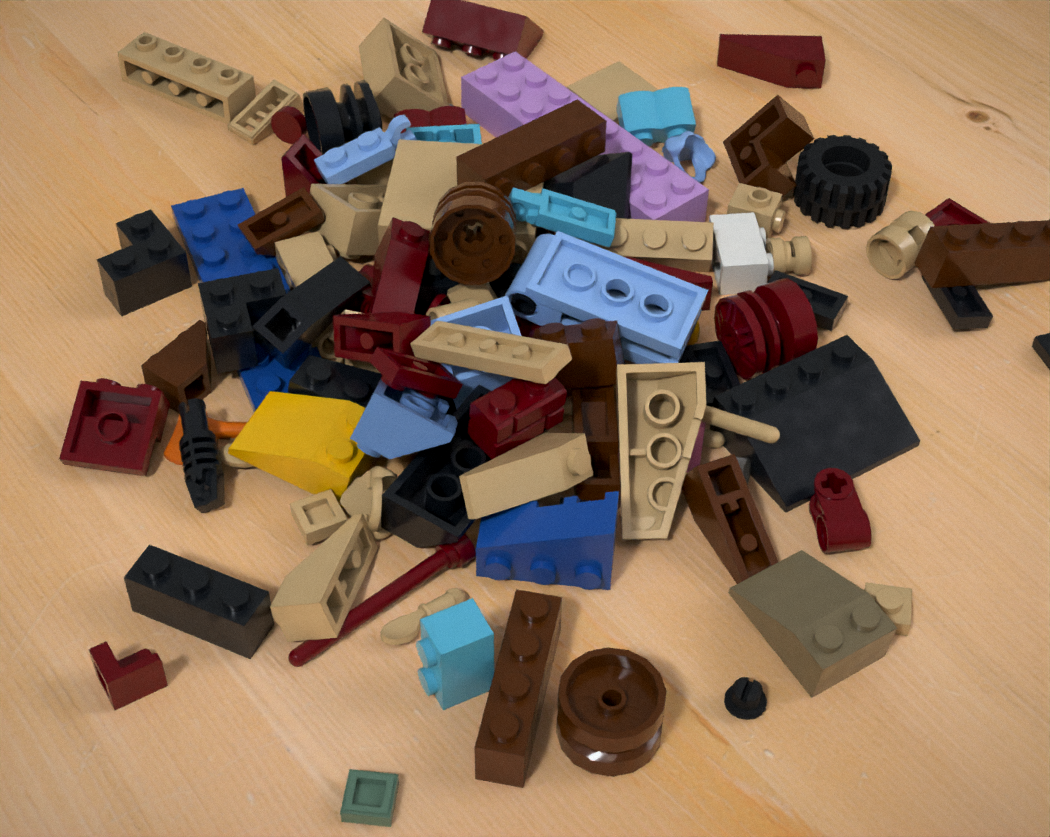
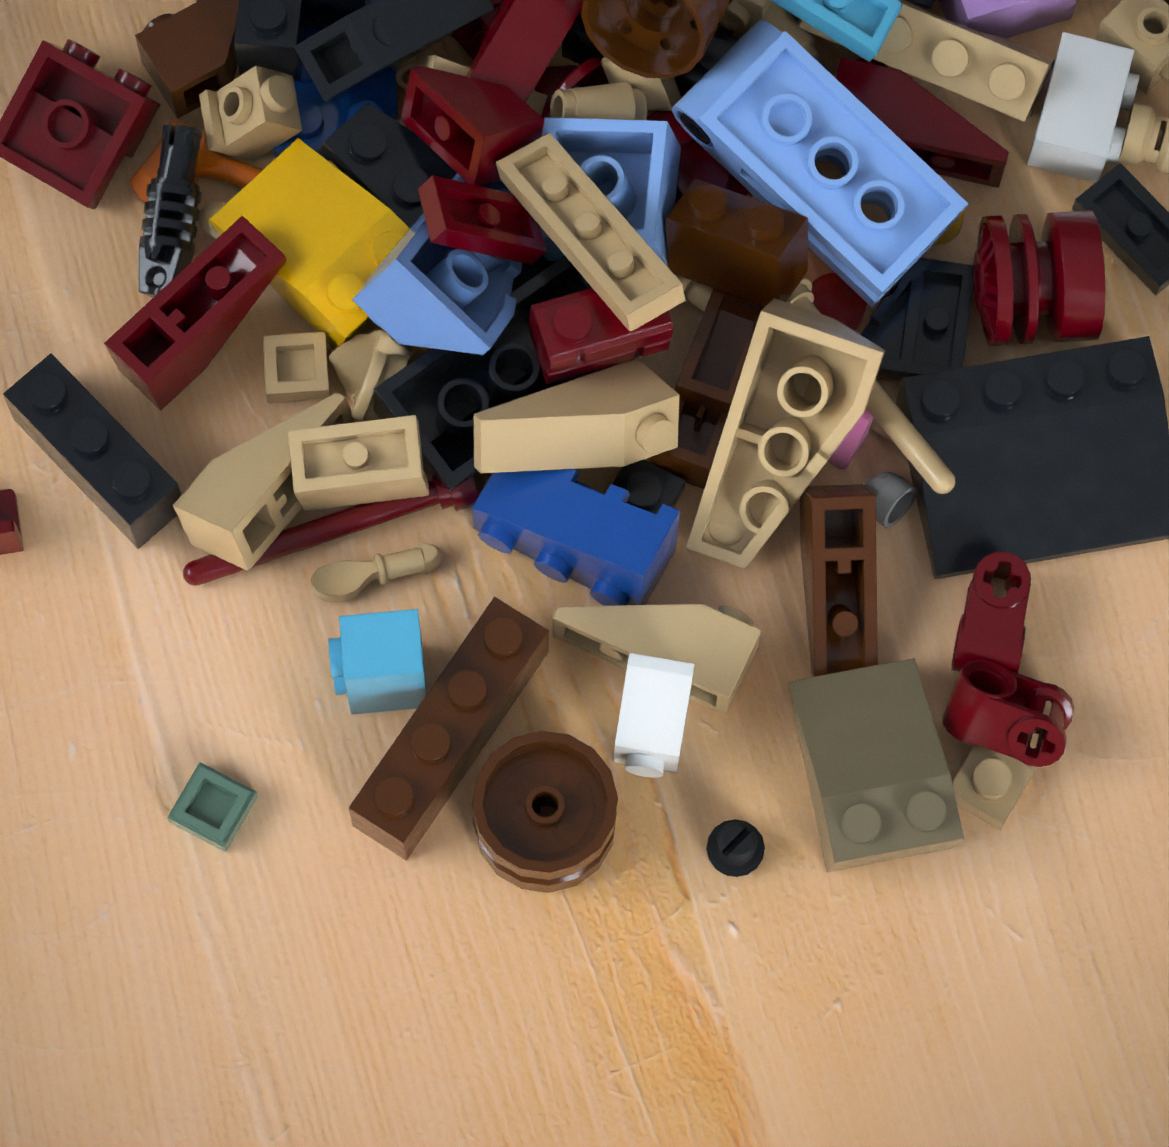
camera: 20 degrees right, 25 degrees up
(234, 387) = (251, 114): none -> tan brick
(239, 500) = (195, 313): none -> dark red slope
(390, 543) = (357, 463): none -> tan panel
(642, 592) = (712, 639): none -> tan slope
(655, 621) = (653, 715): none -> white slope
(871, 558) = (1004, 710): none -> dark red piece

